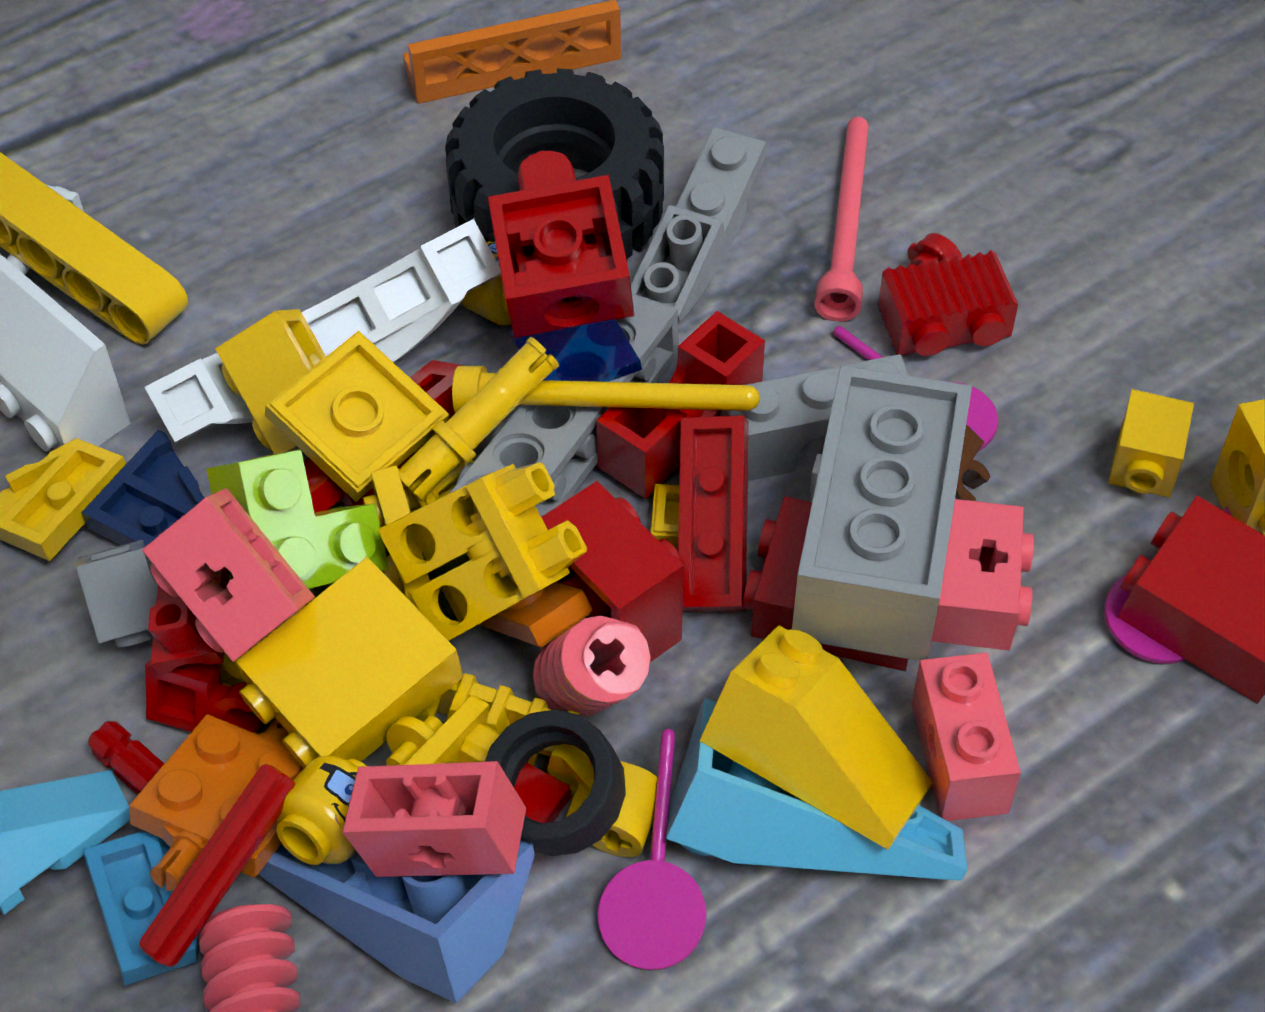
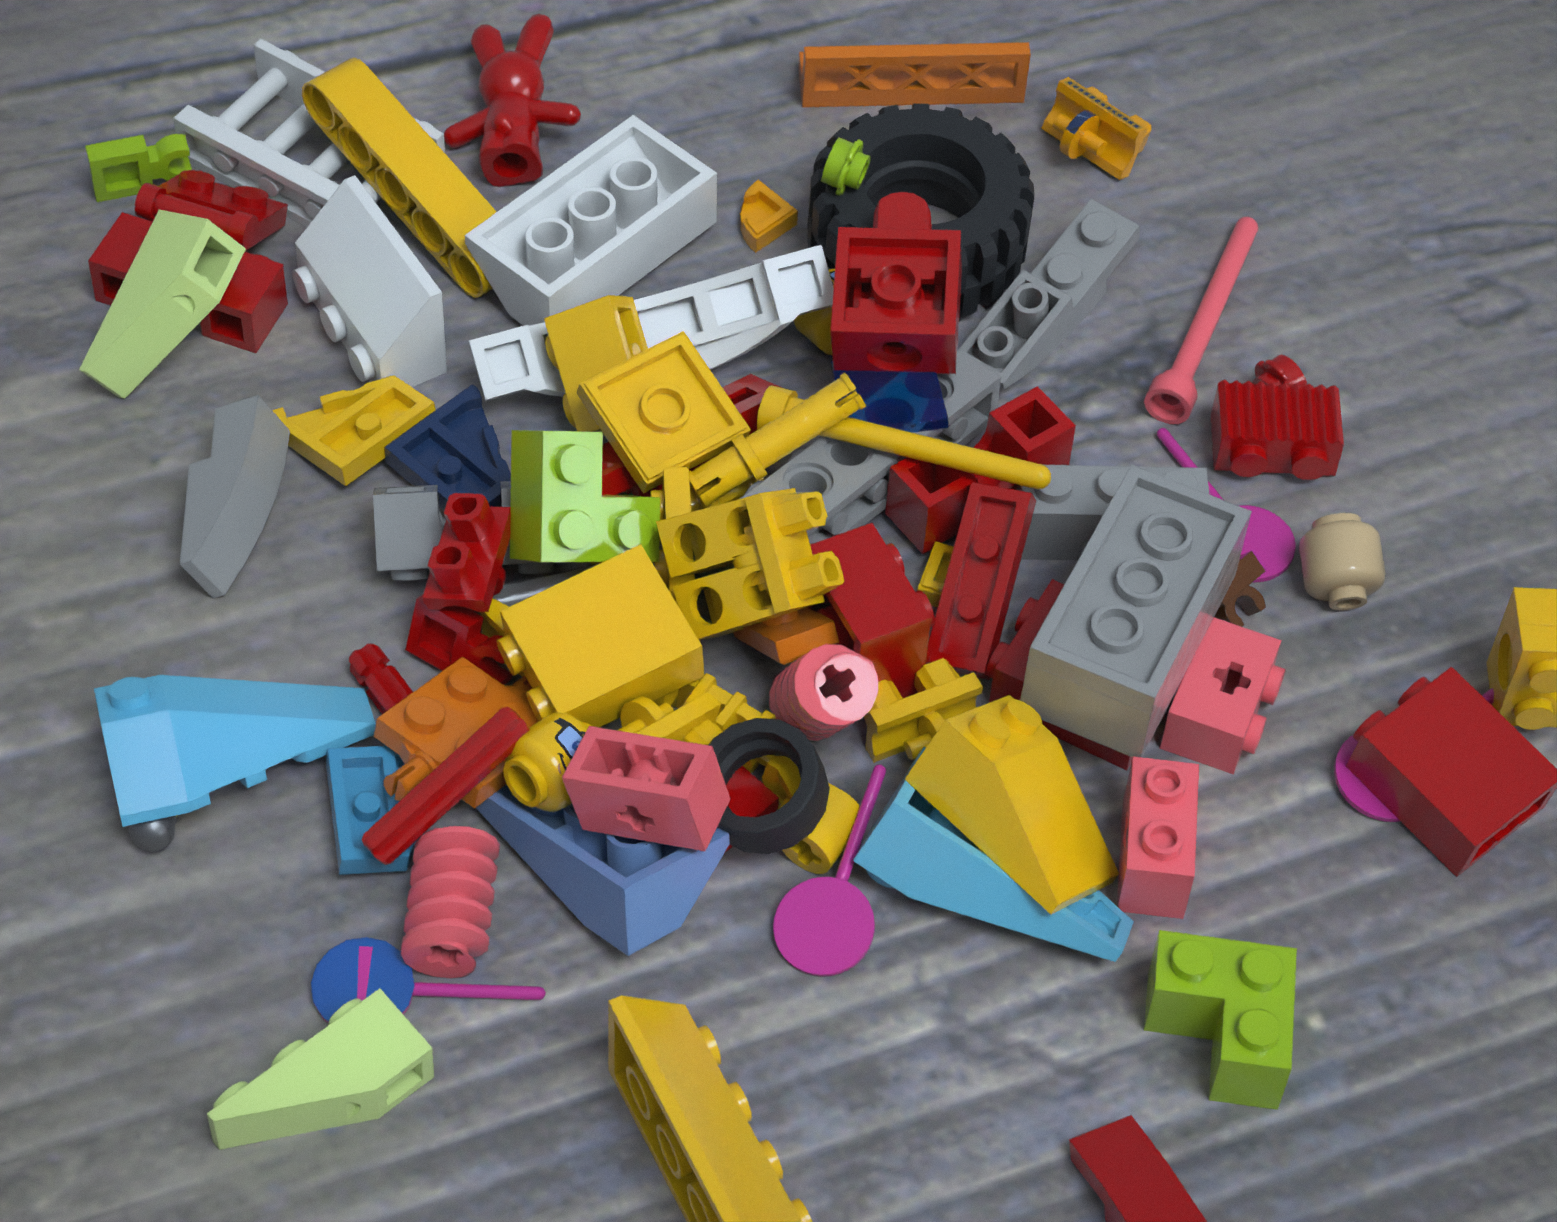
camera: 10 degrees right, 0 degrees up
(140, 147) = (513, 95): none -> red animal
(196, 550) = (534, 556): coral brick -> none
(245, 248) = (595, 223): none -> white slope
(408, 209) = (765, 216): none -> light orange tile
(478, 139) = (845, 165): none -> lime plate
(695, 66) = (1095, 128): none -> light orange hips
(697, 667) = (911, 722): none -> yellow hips
(1049, 415) = (1342, 561): none -> tan head
(1097, 890) = (1235, 997): none -> lime brick
(1151, 443) = (1434, 610): yellow brick -> none

